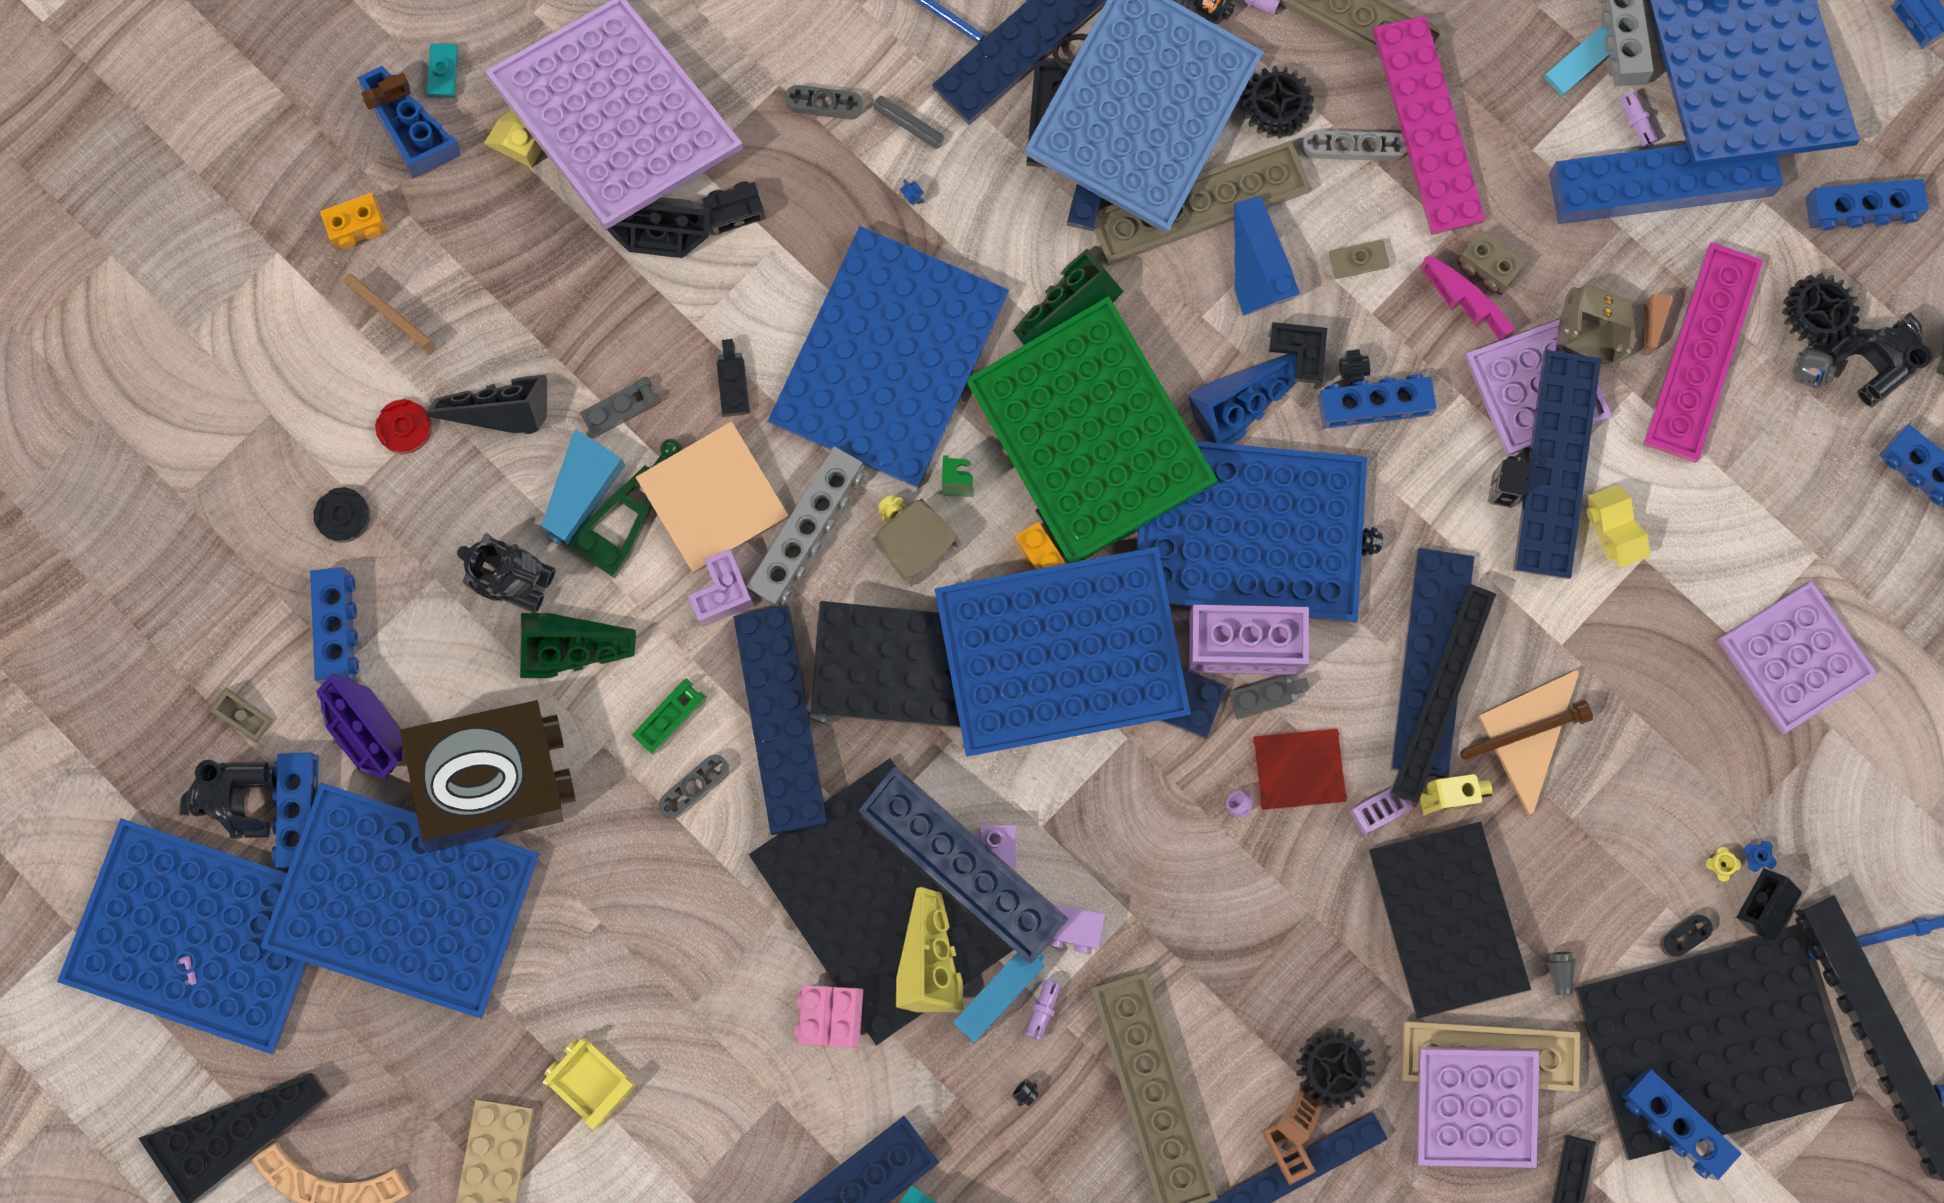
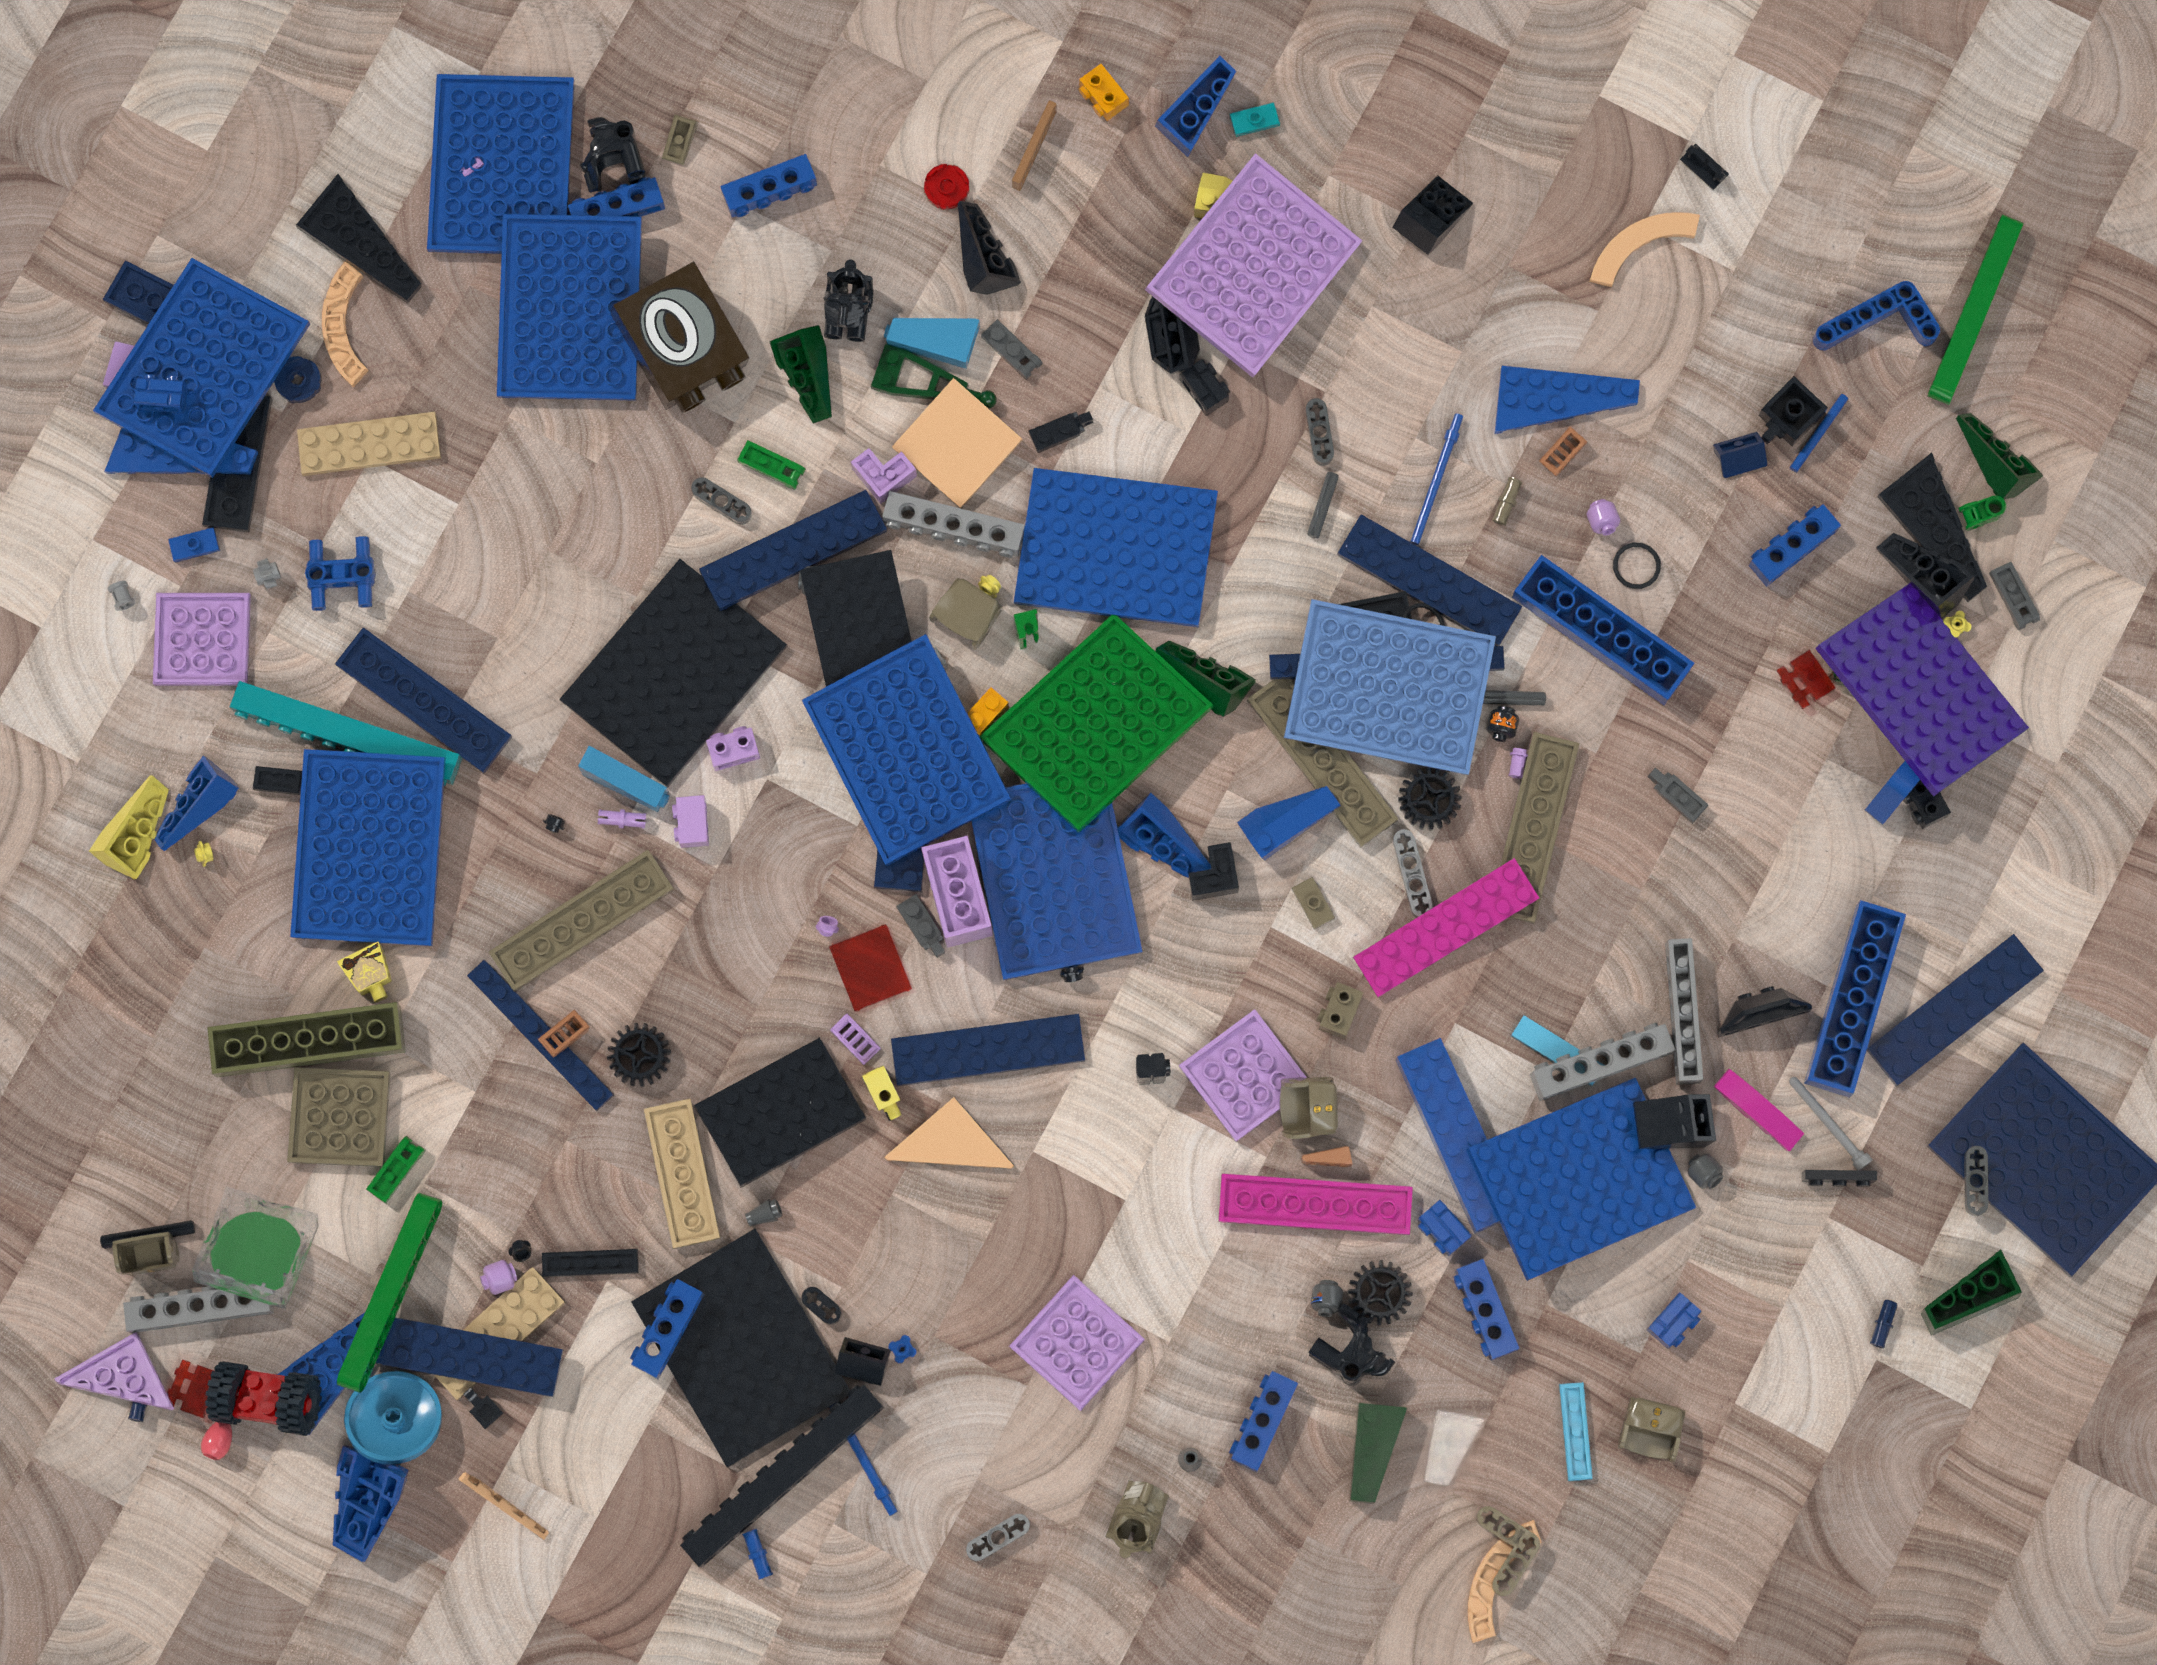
camera: 70 degrees right, 0 degrees up
(342, 515) = (860, 163): black tile -> none
(361, 725) = (696, 232): dark purple wedge -> none
(389, 90) = (1214, 84): reddish brown plate -> none
(589, 1082) = (471, 492): light yellow panel -> none
(829, 1016) = (570, 656): bright pink plate -> none
(912, 192) = (1261, 525): blue plate -> none
(926, 968) = (630, 717): light yellow wedge -> none
(963, 865) = (714, 720): dark blue plate -> none
(1293, 1129) = (580, 1029): nougat slope -> none
(1335, 414) = (1201, 983): blue brick -> none
(1354, 366) = (1216, 921): black gear -> none
(1442, 694) = (960, 1059): black plate -> none
(1459, 291) = (1306, 990): dark pink slope -> none
(1477, 1107) = (638, 1170): lavender plate -> none
(1557, 464) = (1179, 1104): dark blue plate -> none
(1579, 712) = (976, 1173): reddish brown piece -> none
(1614, 521) = (1149, 1163): light yellow brick -> none
(1638, 119) = (1506, 1102): lavender pin -> none
(1730, 860) = (887, 1315): light yellow plate -> none
(1763, 222) = (1444, 1228): none -> blue brick

